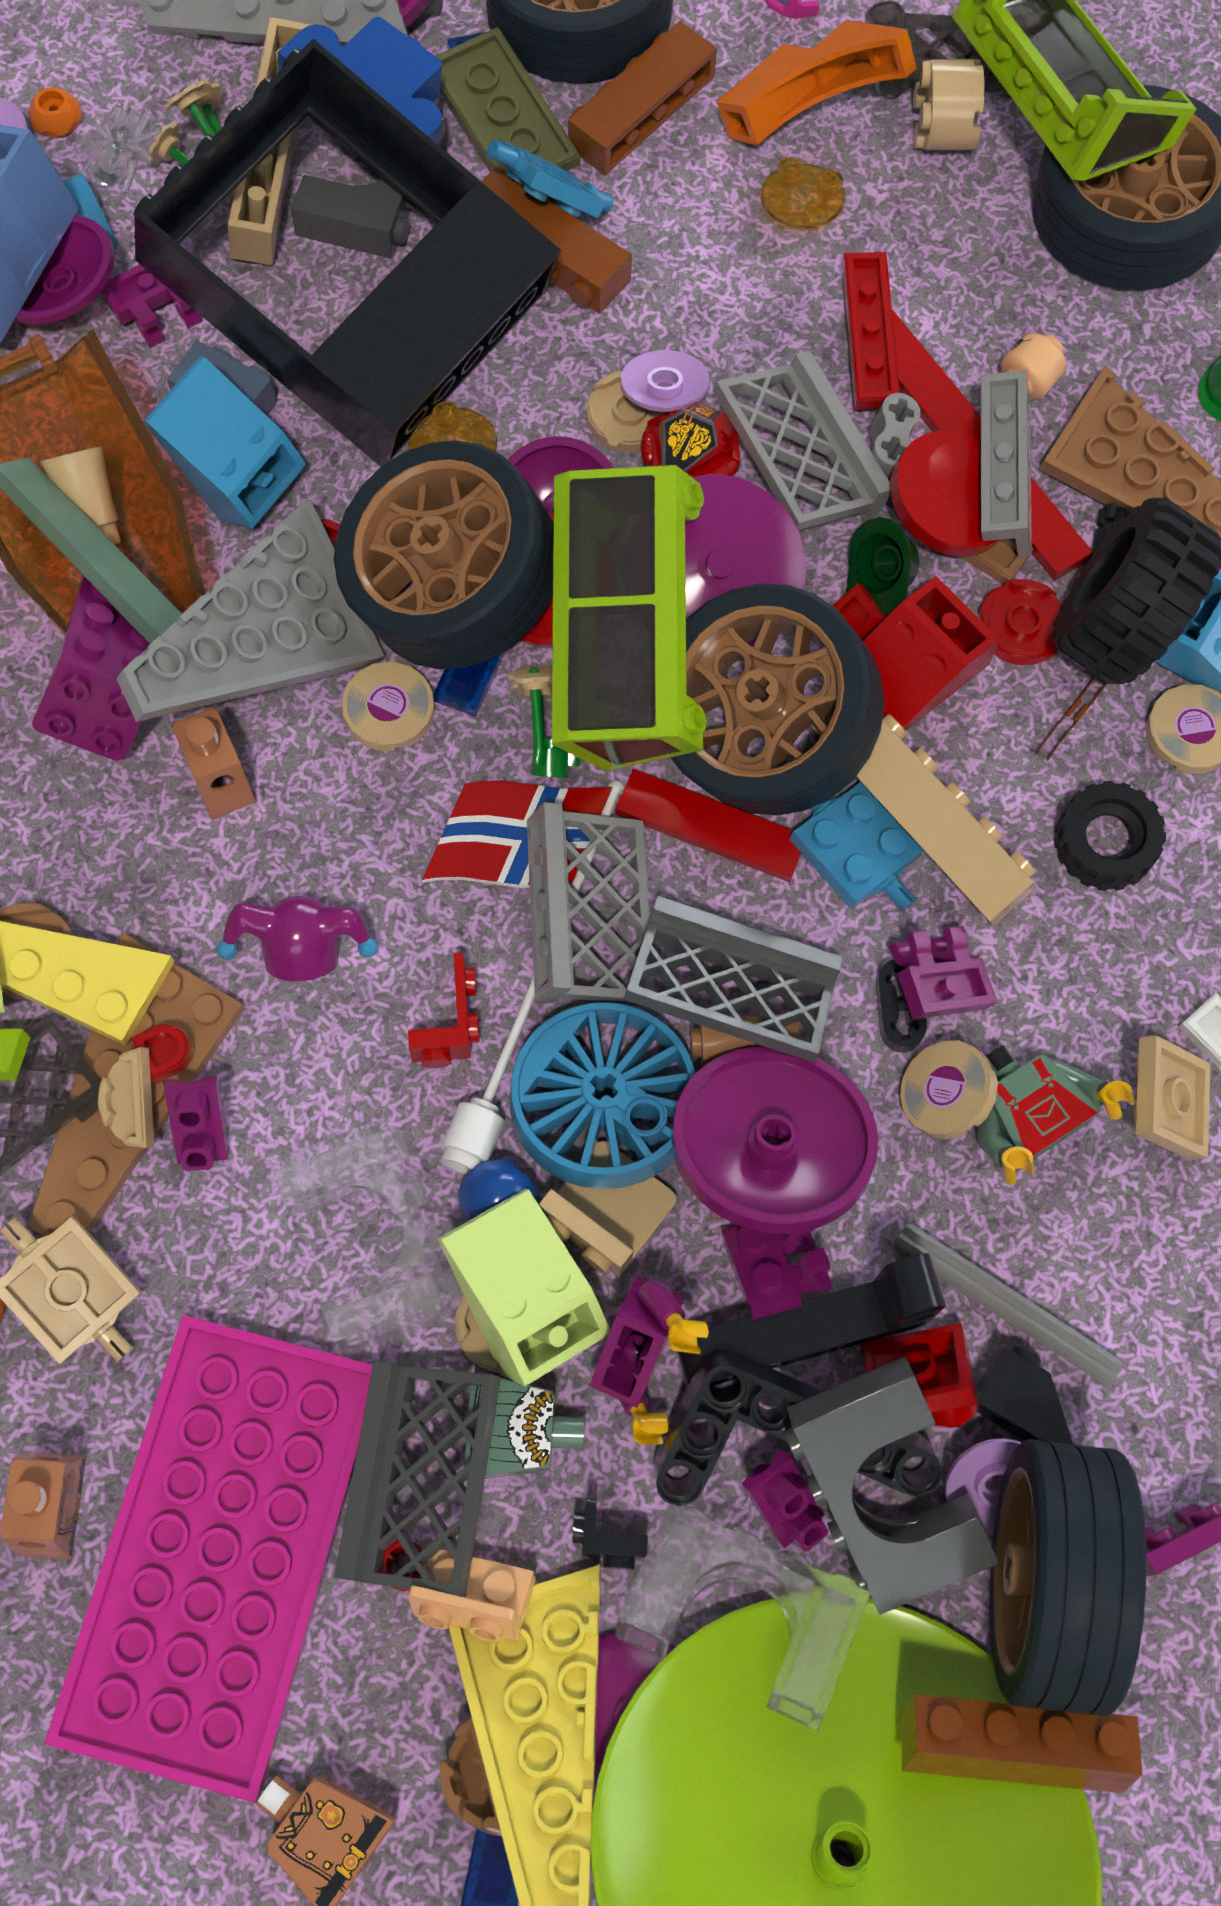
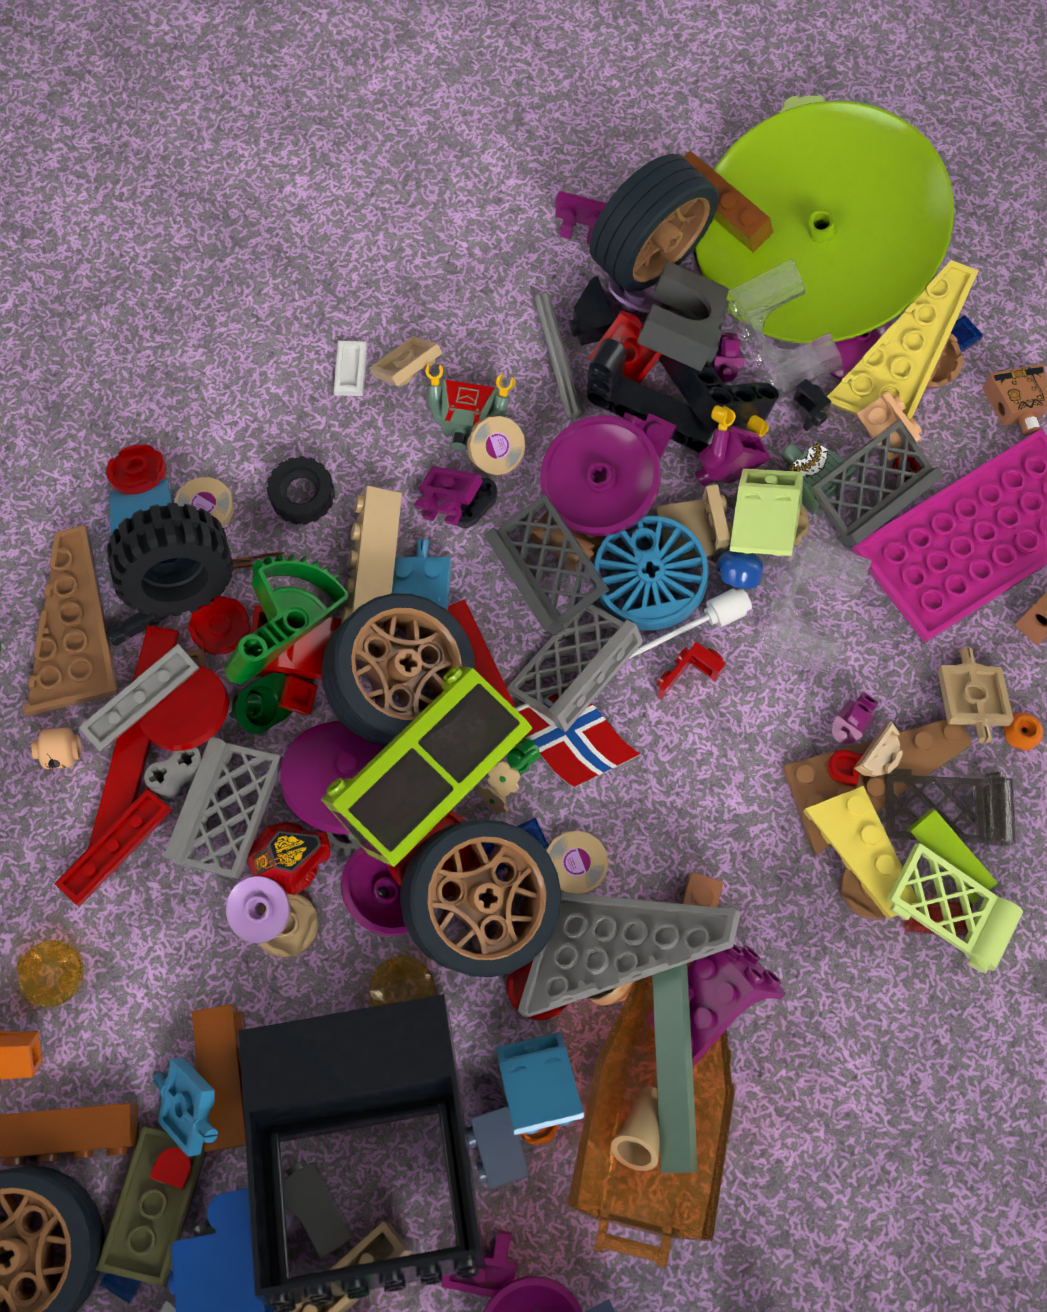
camera: 135 degrees left, 0 degrees up
(296, 936) = (730, 771): magenta piece -> none
(515, 131) = (172, 1168): none -> red tile
(966, 649) = (283, 605): none -> green arm

